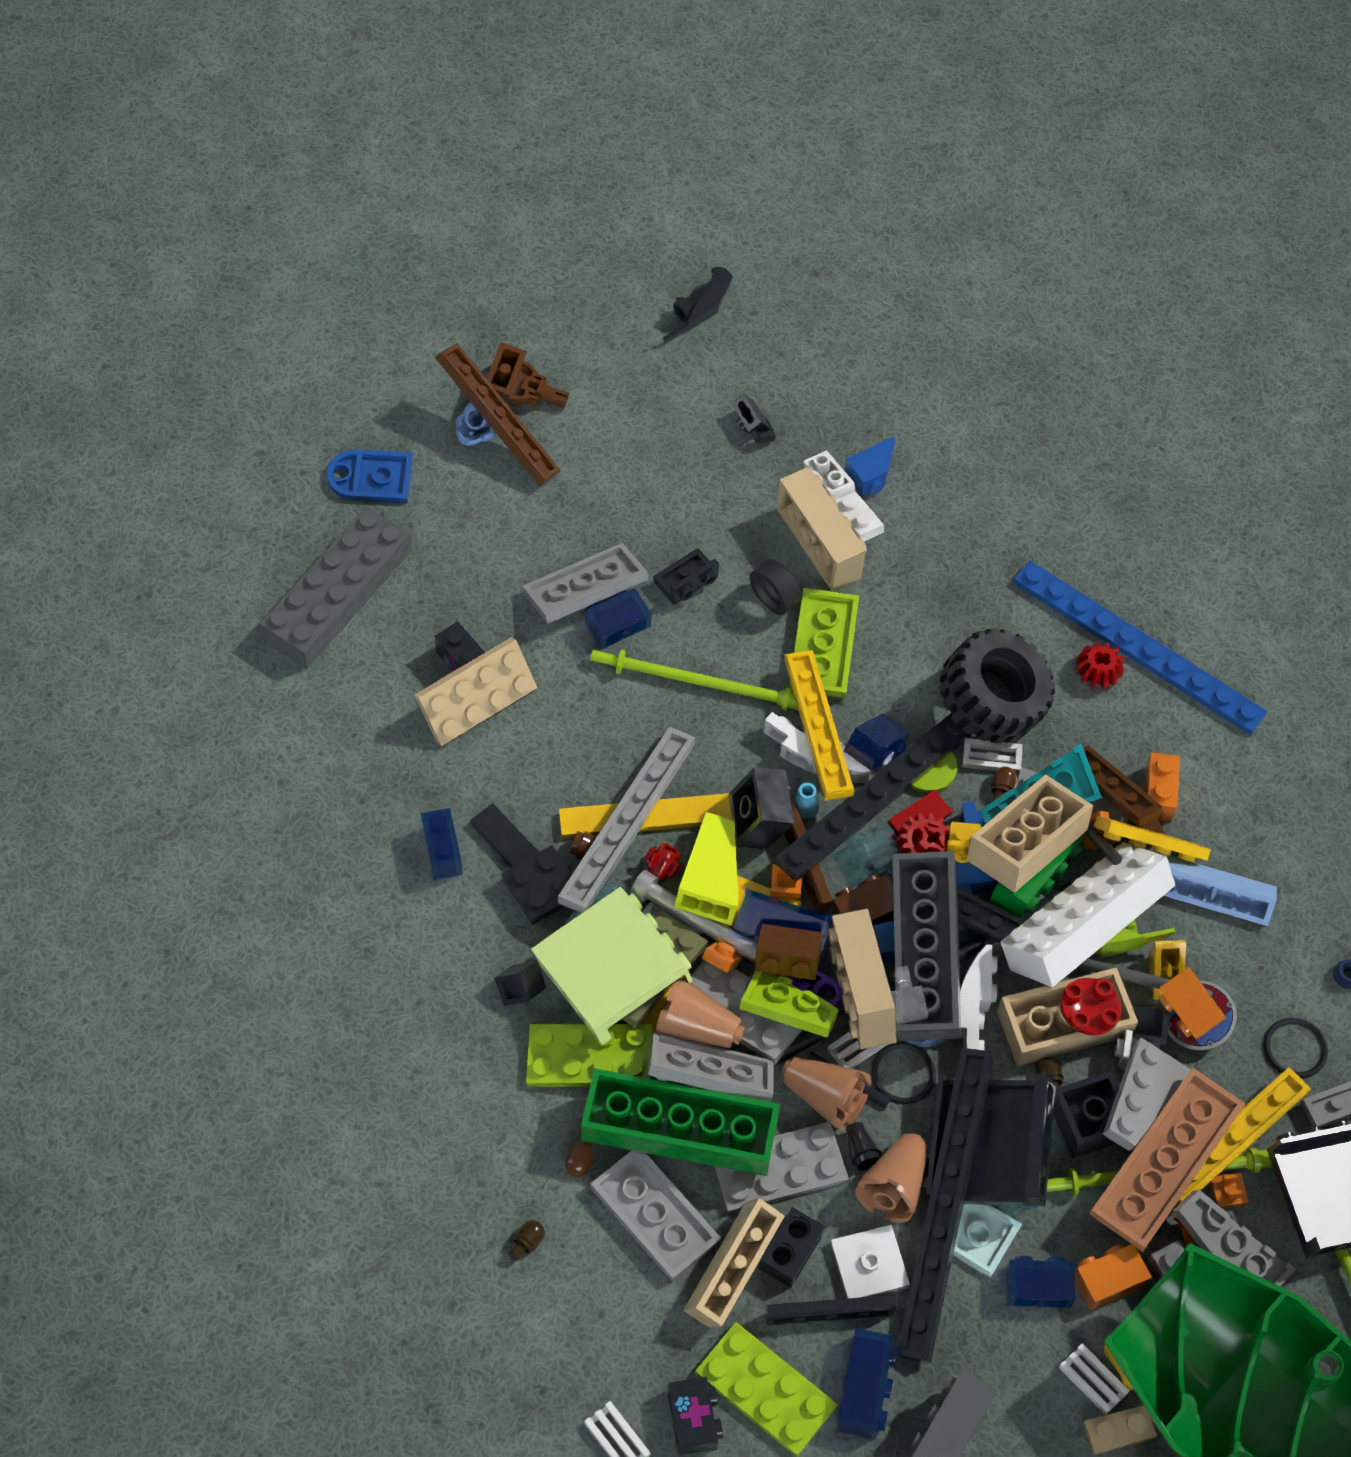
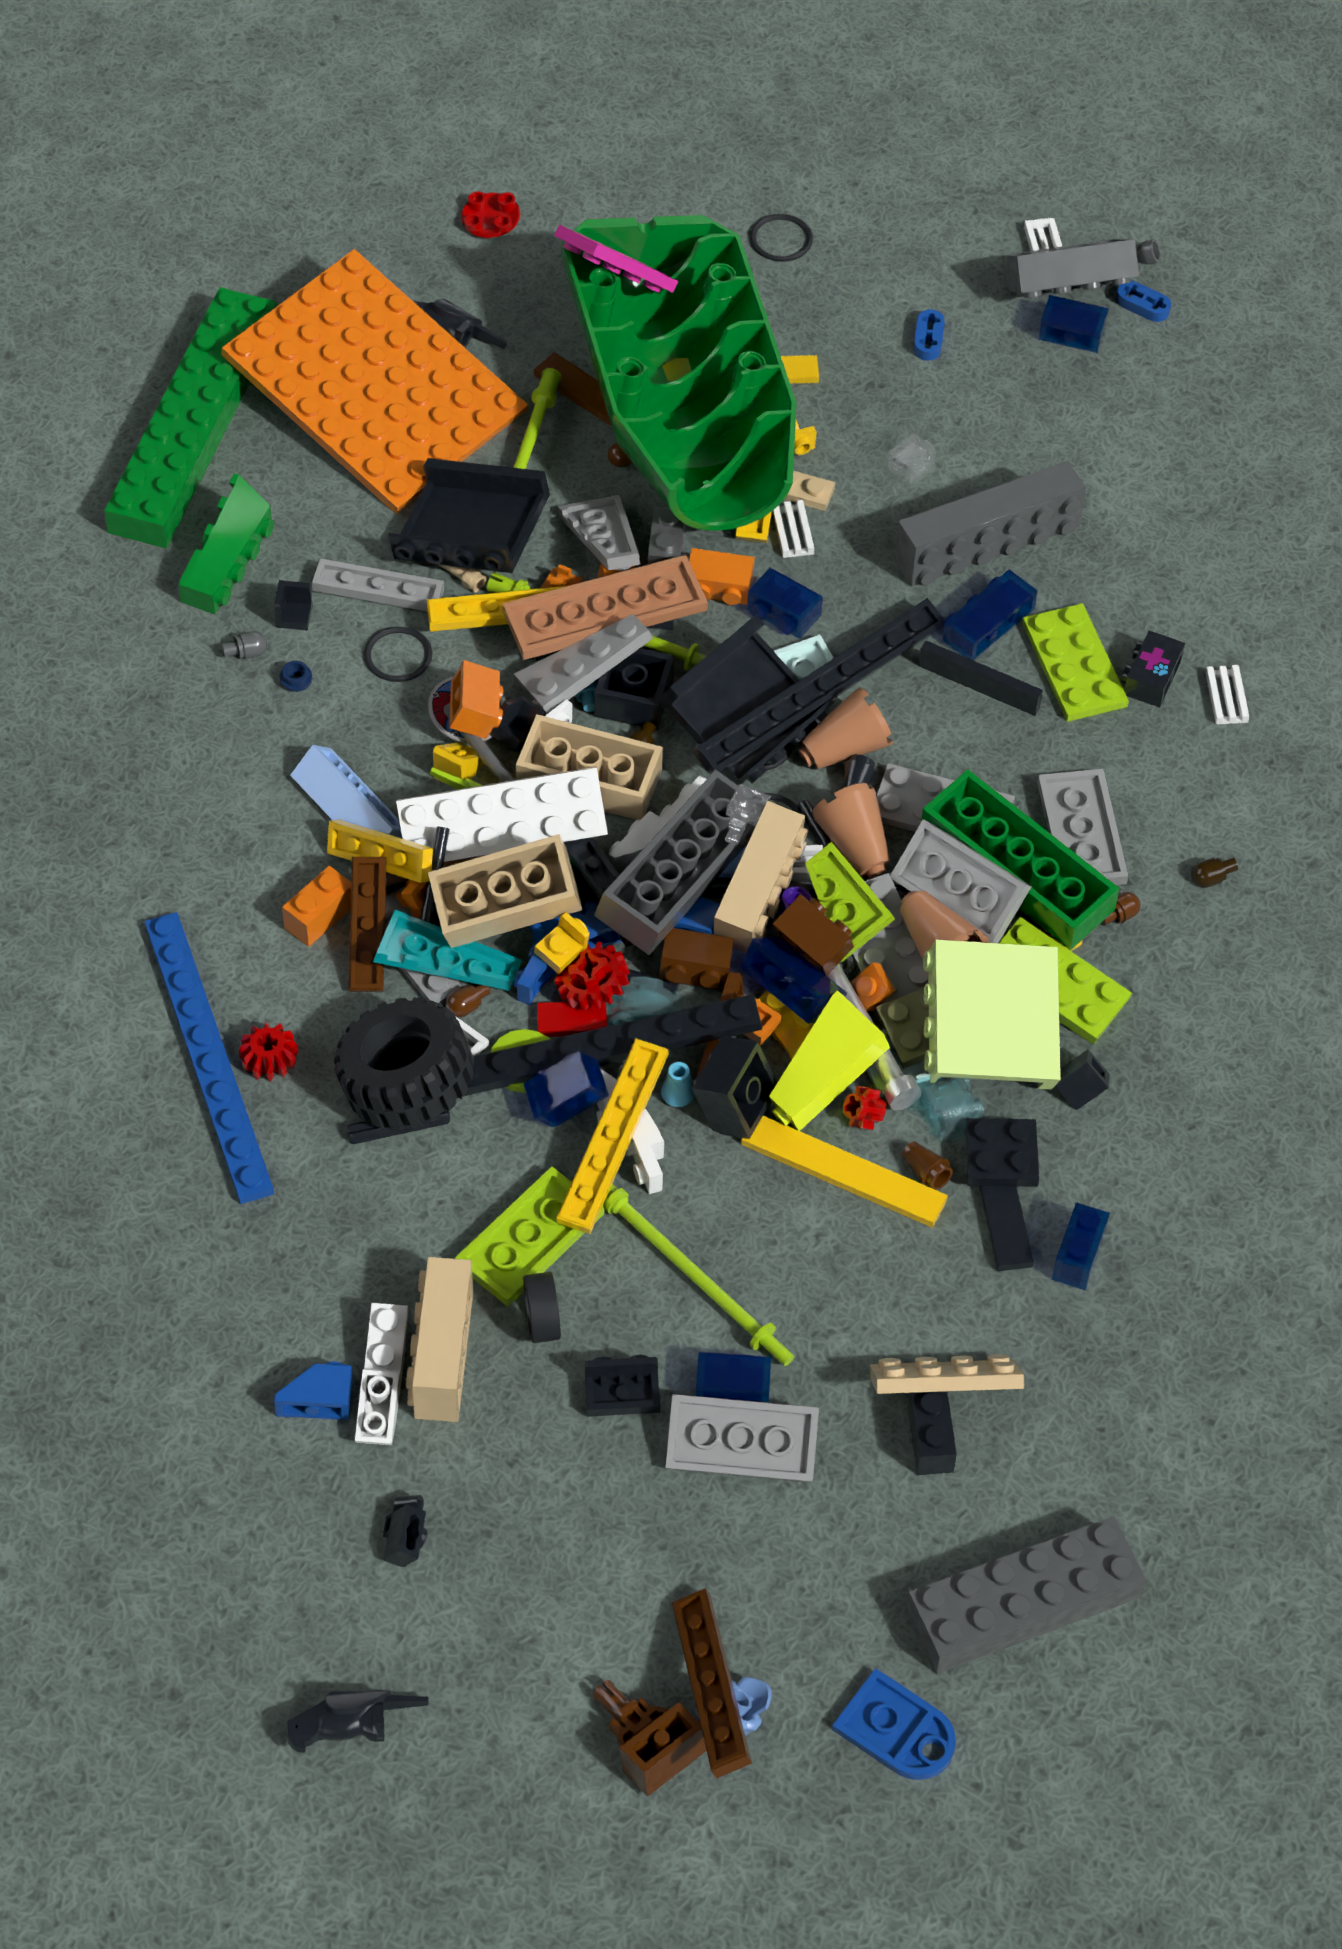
camera: 145 degrees left, 5 degrees down
(626, 820) = (874, 1157): light grey plate -> none
(734, 1263) = (1042, 745): tan brick -> none
(795, 1249) = (980, 738): black brick -> none
(870, 1263) = (917, 698): white plate -> none
(1090, 1006) = (572, 739): red dish -> none

